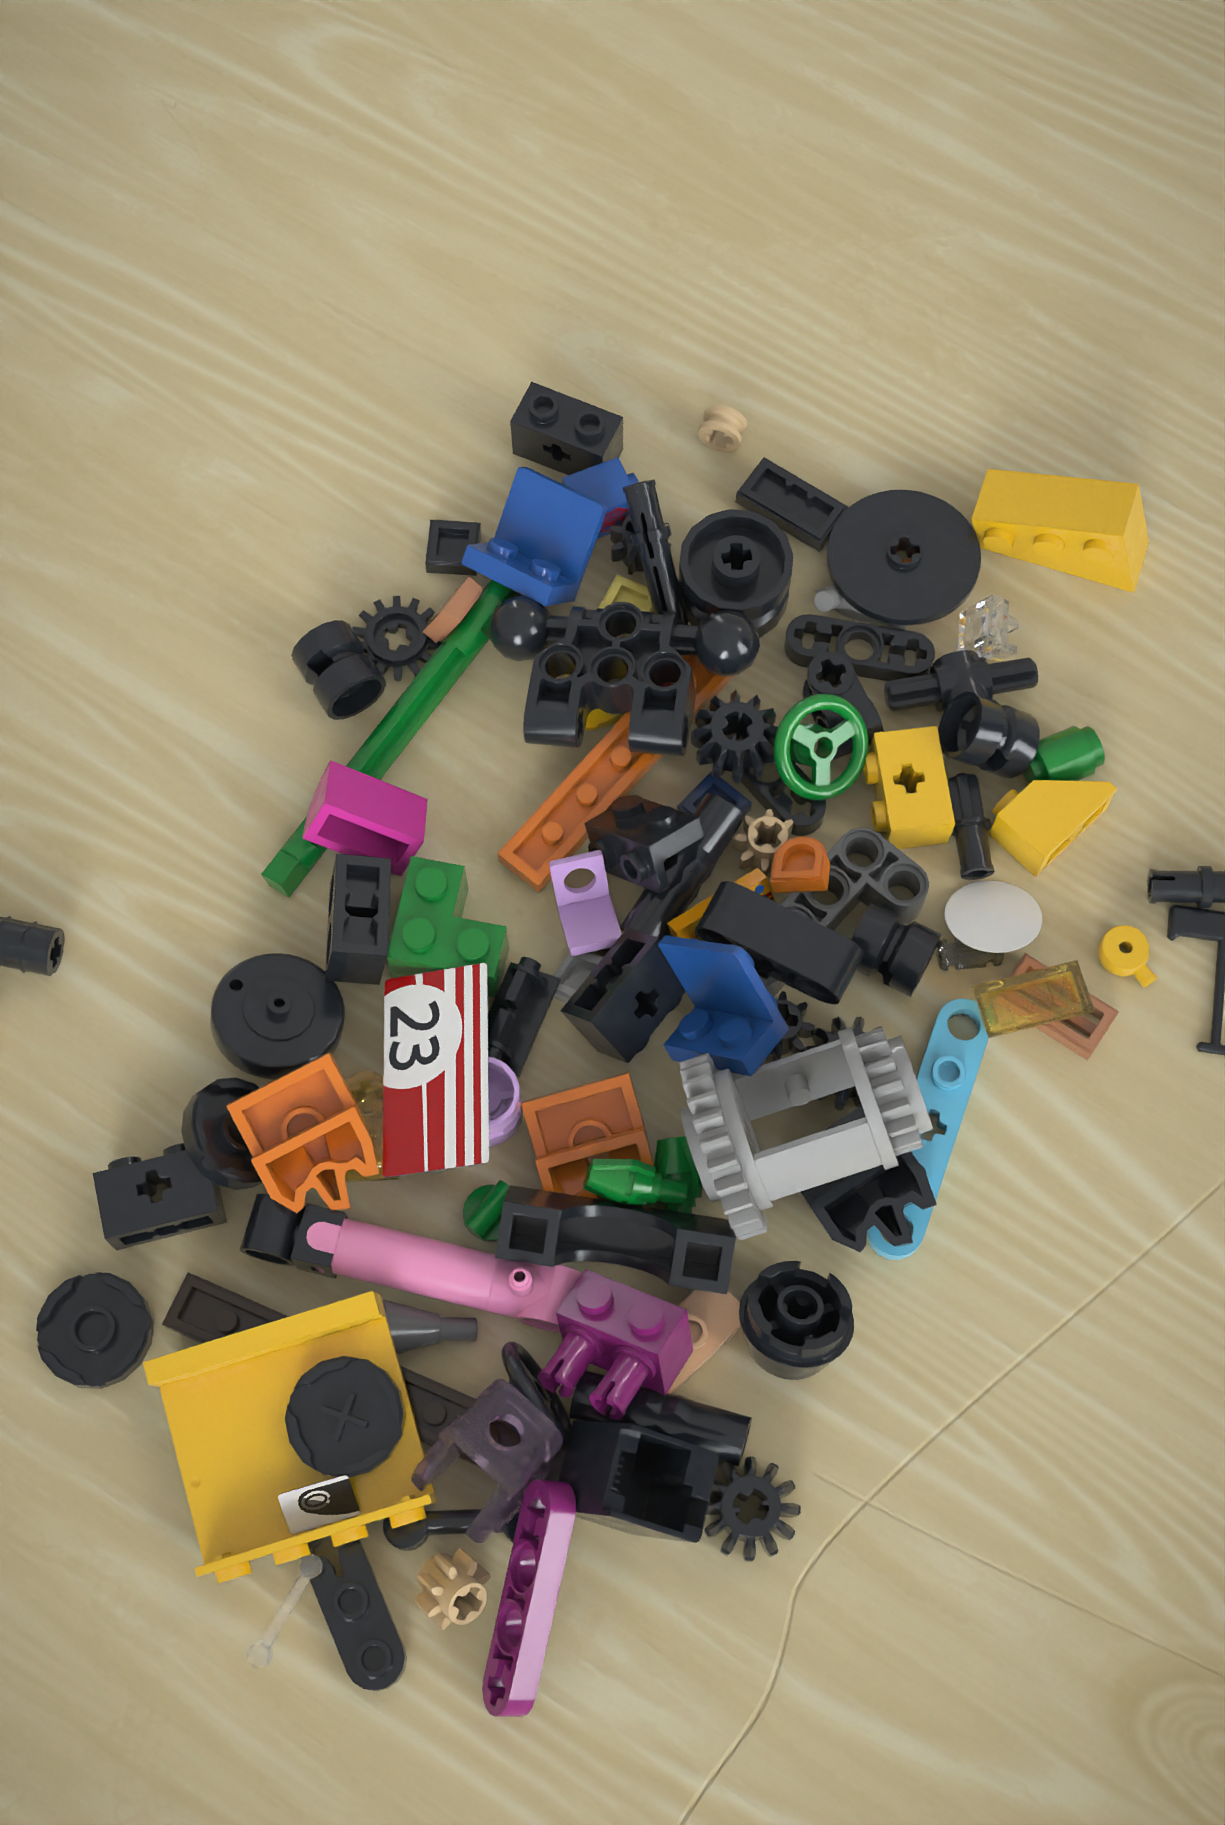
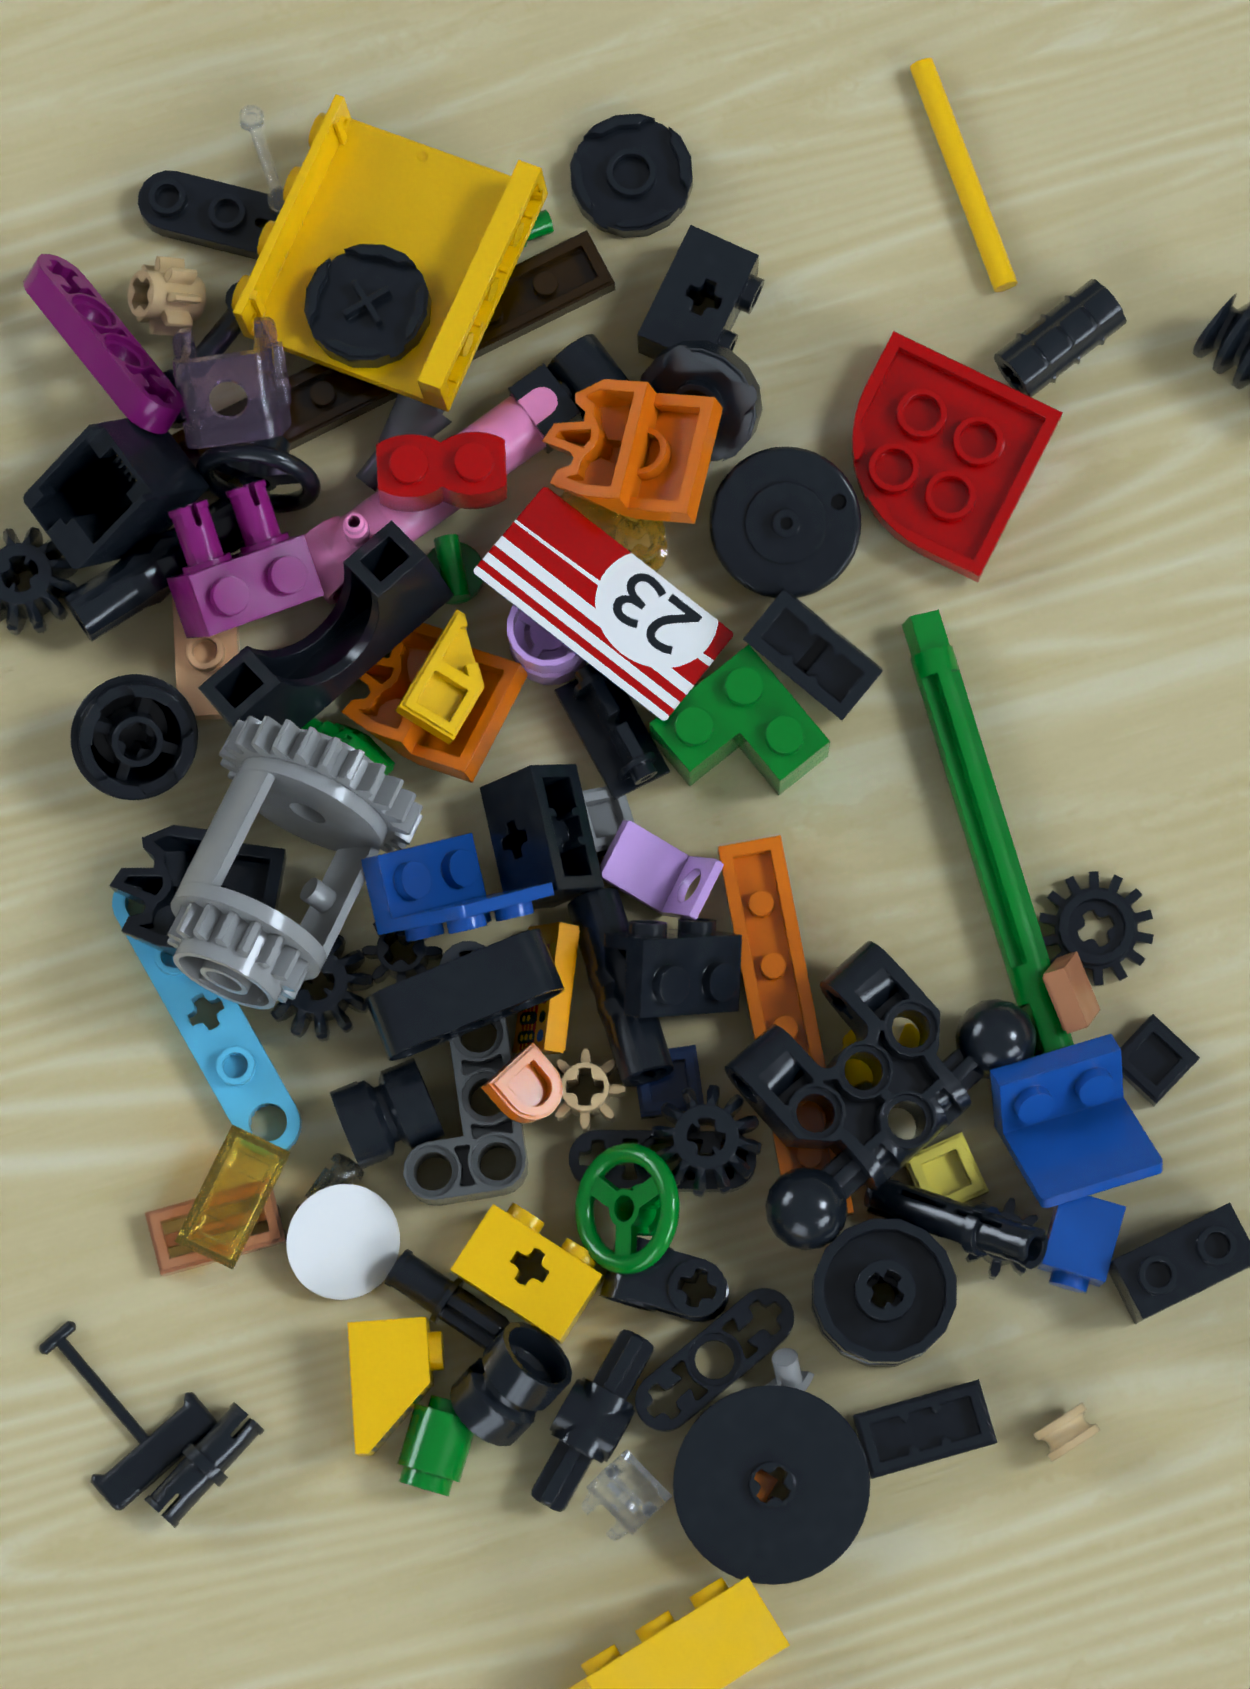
camera: 135 degrees right, 10 degrees up
(144, 955) = (945, 453): none -> red plate
(319, 1504) = (316, 234): sticker -> none
(338, 669) = (1094, 834): black wheel -> none
(366, 817) = (911, 740): dark pink brick -> none
(442, 1254) = (423, 472): none -> red brick
(577, 1136) = (445, 683): none -> yellow tile
(632, 1183) = (364, 694): green piece -> none
(1126, 964) = (195, 1333): yellow piece -> none

